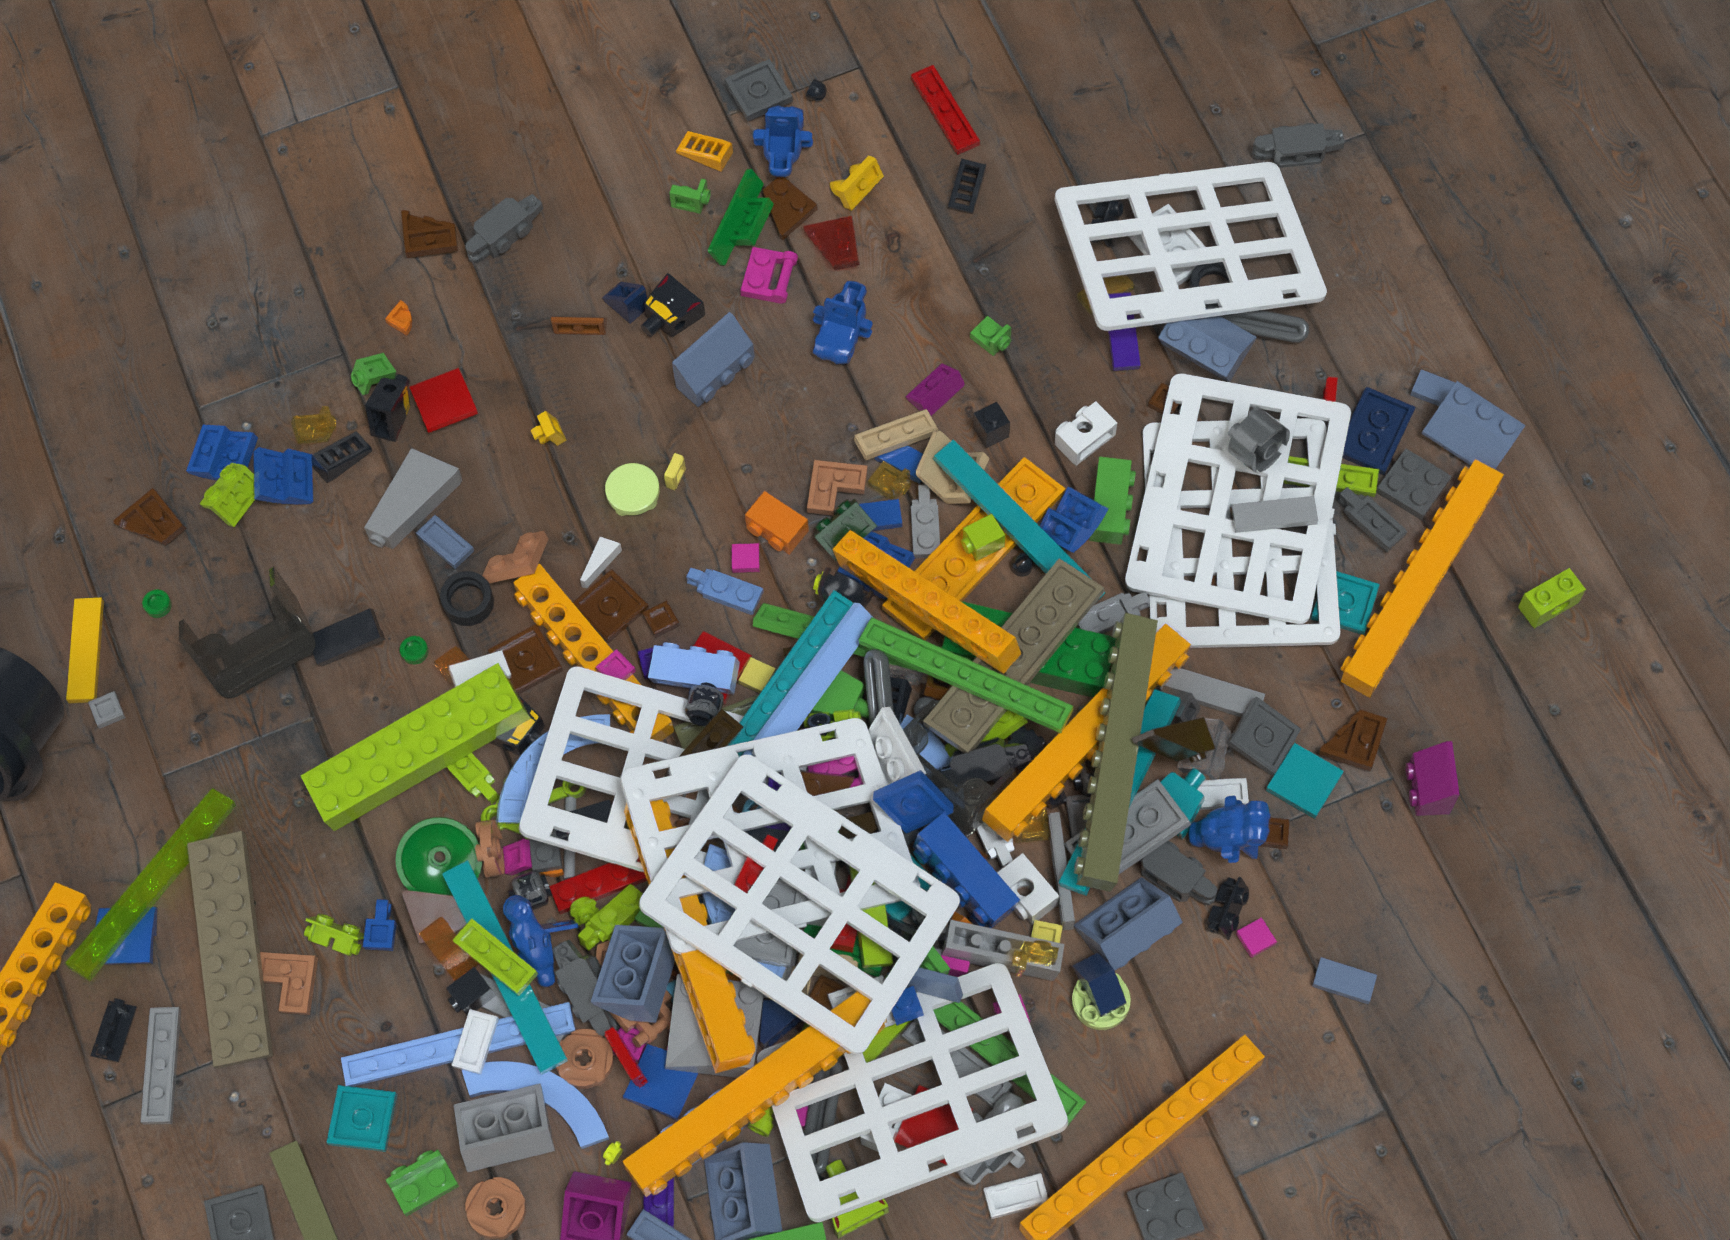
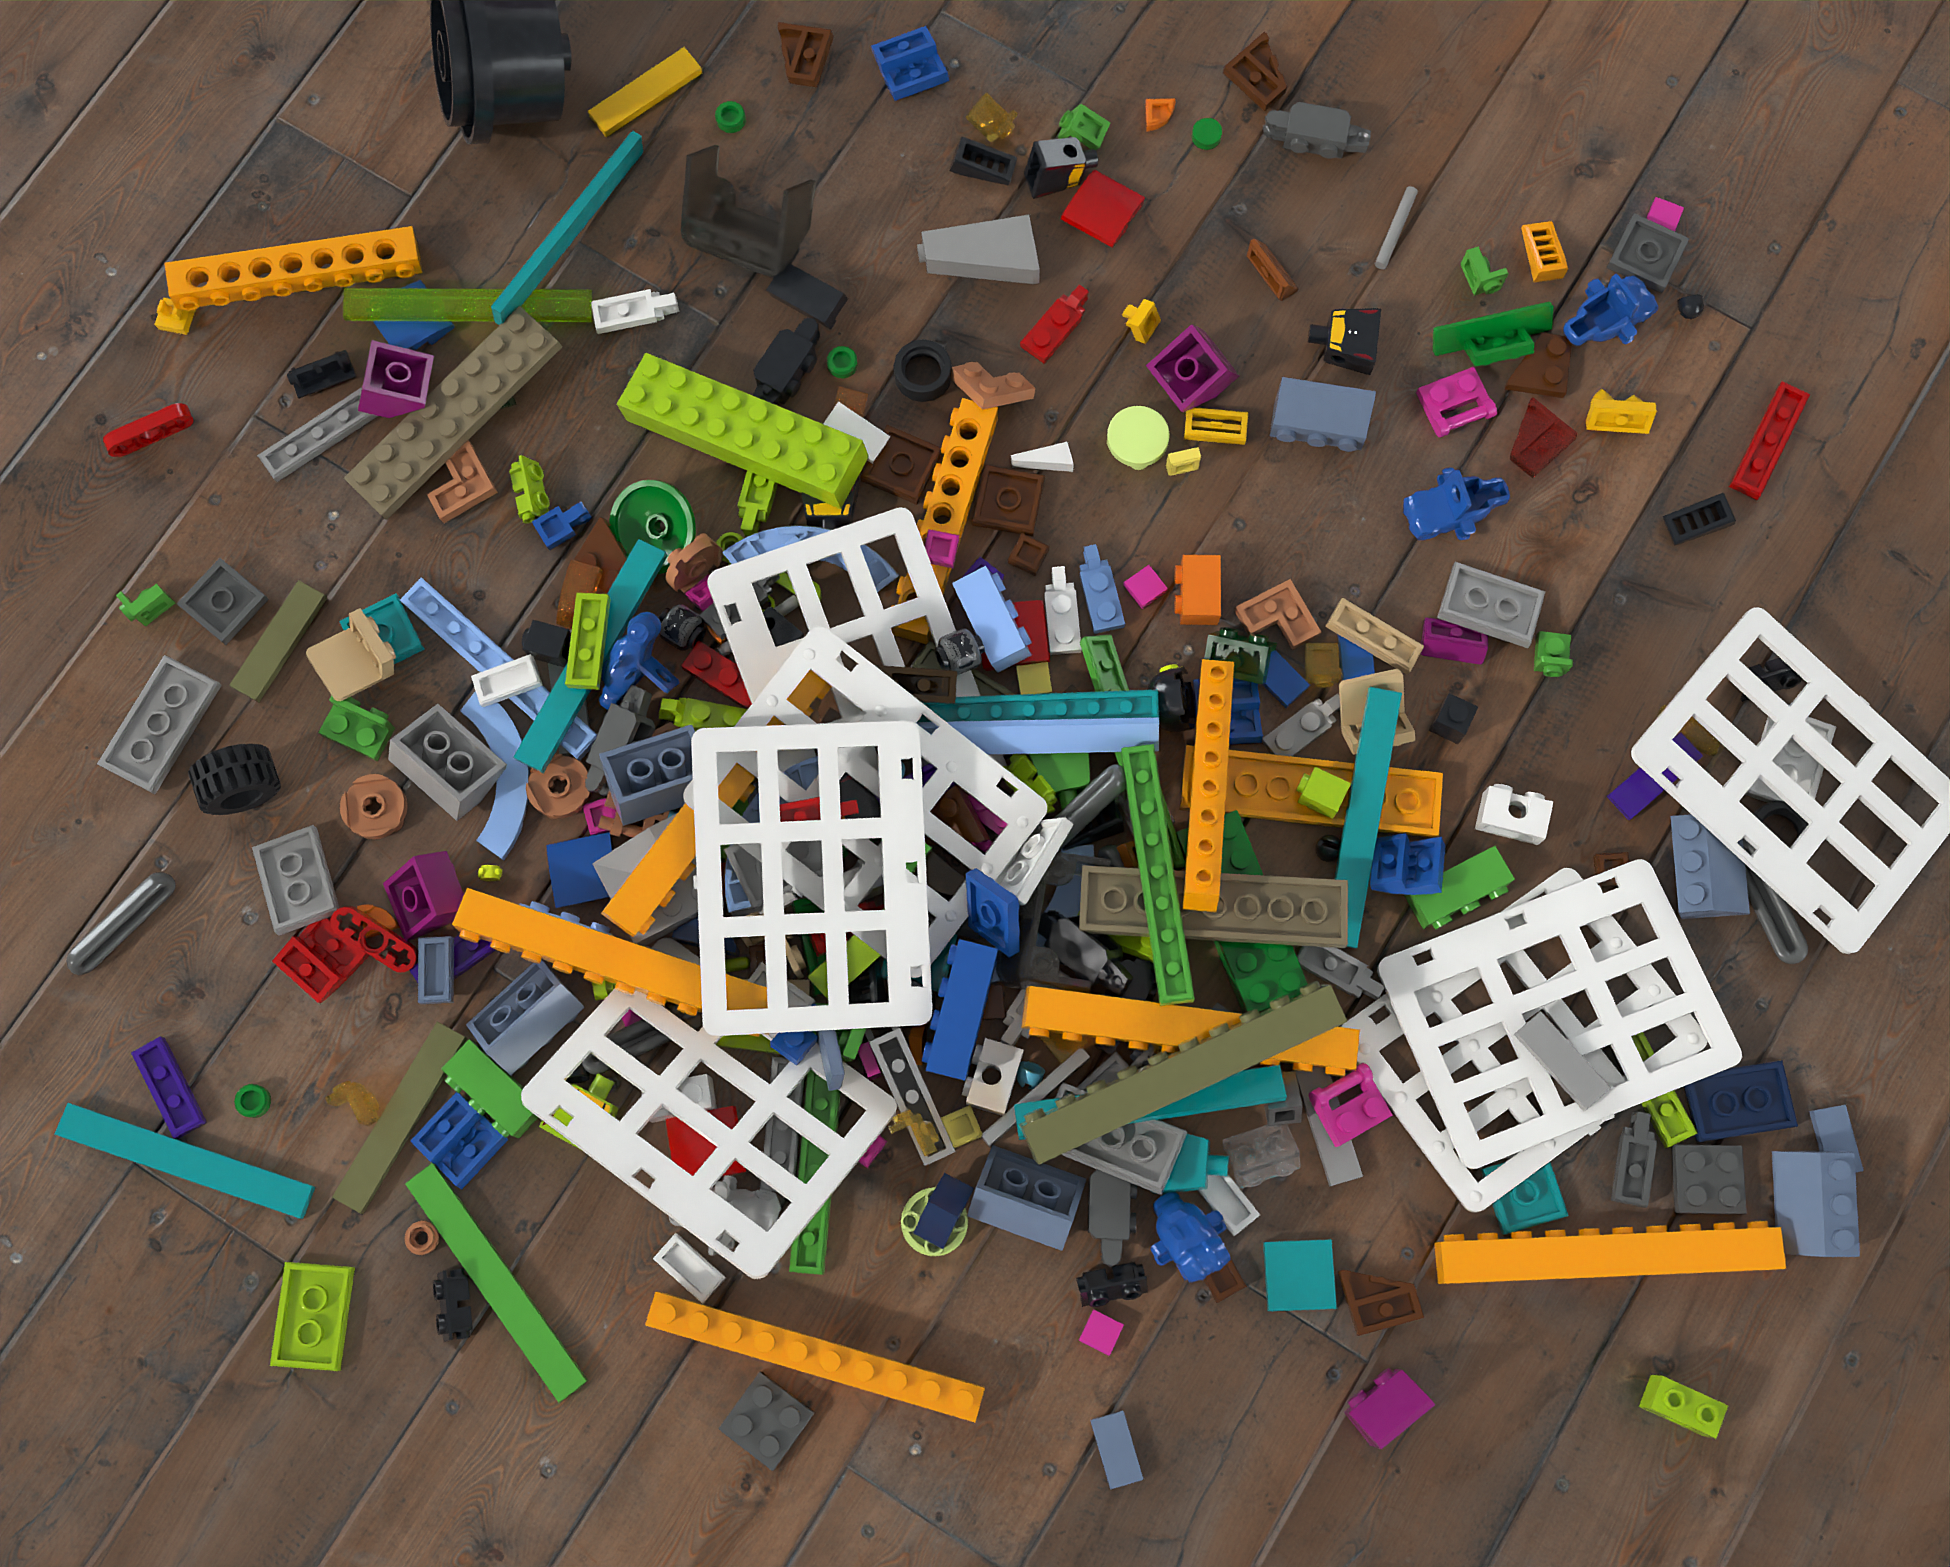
camera: 55 degrees right, 10 degrees up
(50, 1194) = (148, 430): none -> red beam
(106, 709) = (601, 149): light grey tile -> none
(153, 771) = (568, 228): none -> teal tile
(169, 975) = (394, 380): none -> magenta slope
(231, 493) = (876, 99): lime bracket -> none
(252, 769) = (632, 310): none -> white hinge
(283, 476) = (924, 128): blue slope -> none
(369, 1142) = (353, 658): none -> tan bracket
(384, 685) = (786, 362): none -> black hinge
(443, 297) = (1206, 133): none -> green tile
(445, 541) = (965, 312): sand blue tile -> none
(504, 489) = (1055, 325): none -> red hinge
(583, 910) = (695, 686): lime plate -> none
(612, 421) = (1192, 369): none -> magenta slope
(613, 227) = (1396, 227): none -> light grey bar
(625, 1057) = (577, 822): red tile -> none
(627, 300) = (1327, 293): dark blue slope -> none
(670, 442) = (1211, 436): none -> yellow tile
(722, 624) = (1062, 615): none -> white hinge
(738, 61) = (1665, 213): none -> dark pink tile
(819, 718) = (1020, 764): black hinge -> none
(929, 349) = (1491, 605): none -> light grey tile
(1043, 864) = (1030, 1074): none -> medium azure hinge
(1179, 741) = (1242, 1129): dark brown slope -> none
(1220, 669) = (1354, 1115): none -> dark pink plate
(1257, 440) = (1627, 991): dark grey brick -> none
(1263, 736) = (1316, 1204): dark grey tile -> none
(1330, 389) = (1747, 1027): red tile -> none

